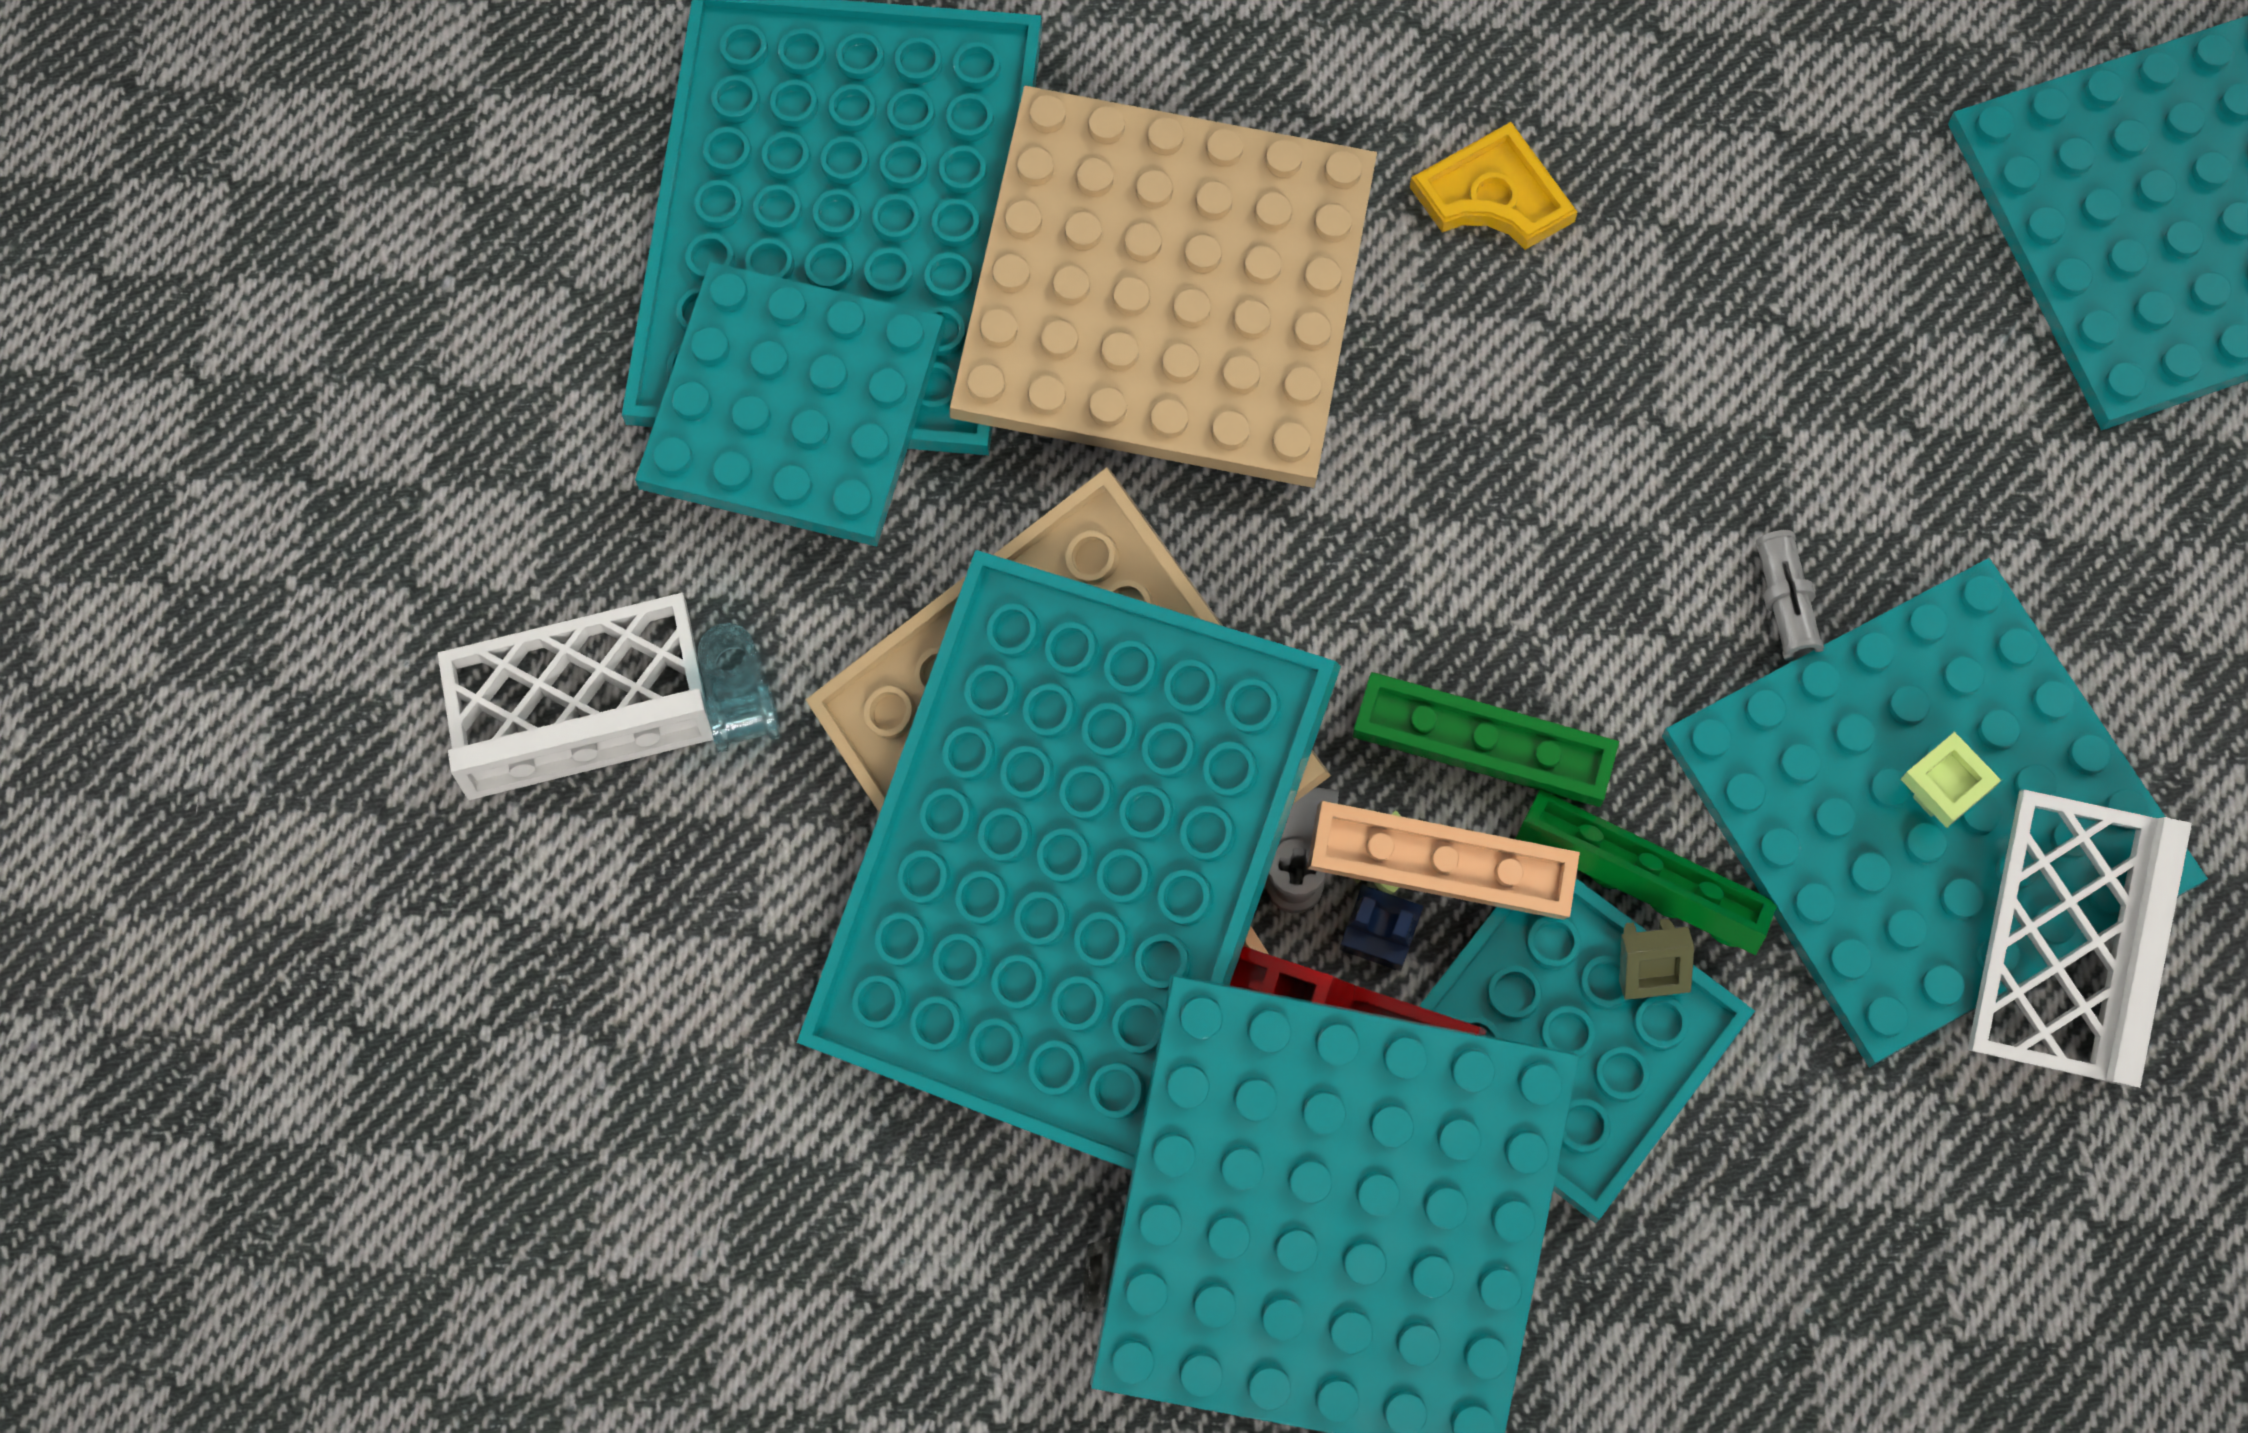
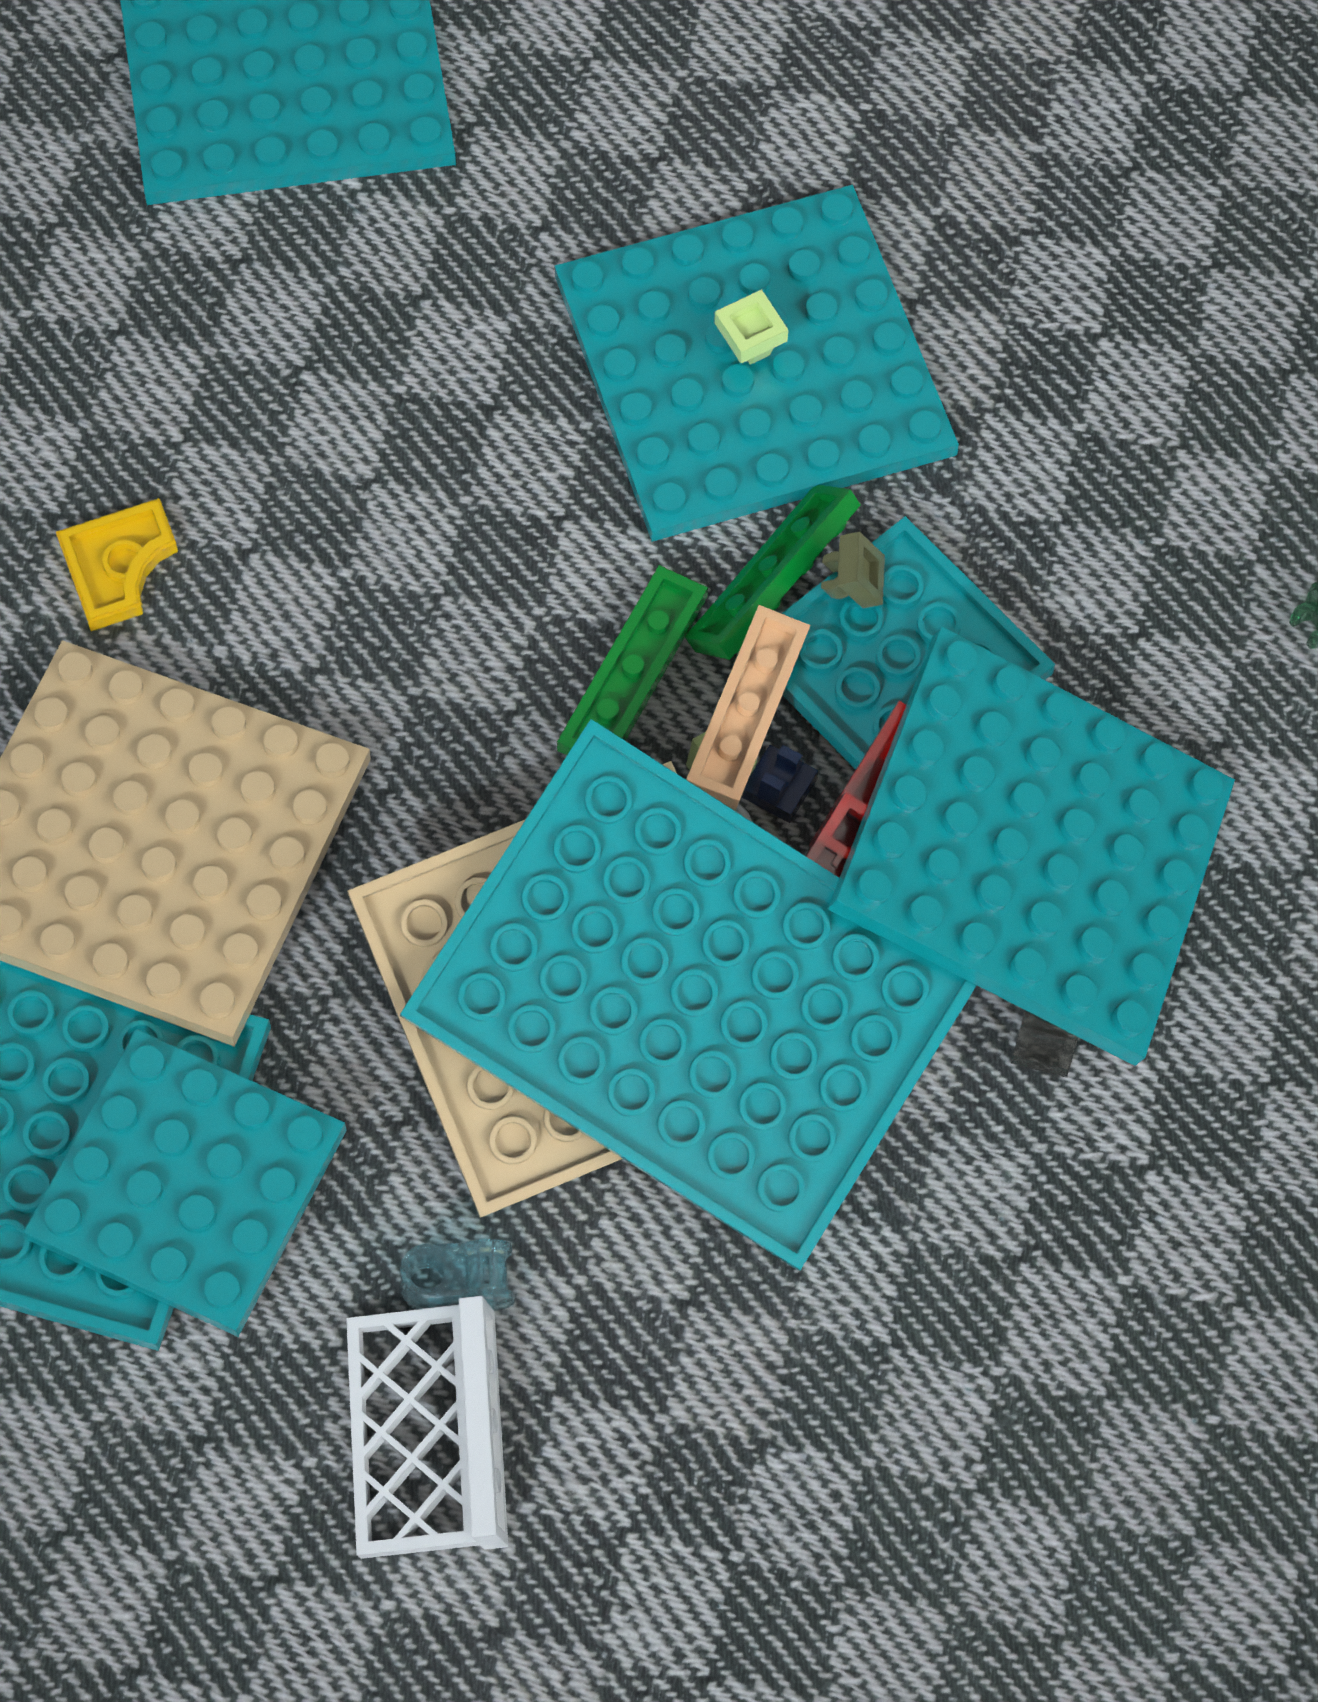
camera: 85 degrees left, 5 degrees down
(1789, 594) = (554, 415): light grey pin -> none
(2137, 949) = (907, 242): white fence -> none

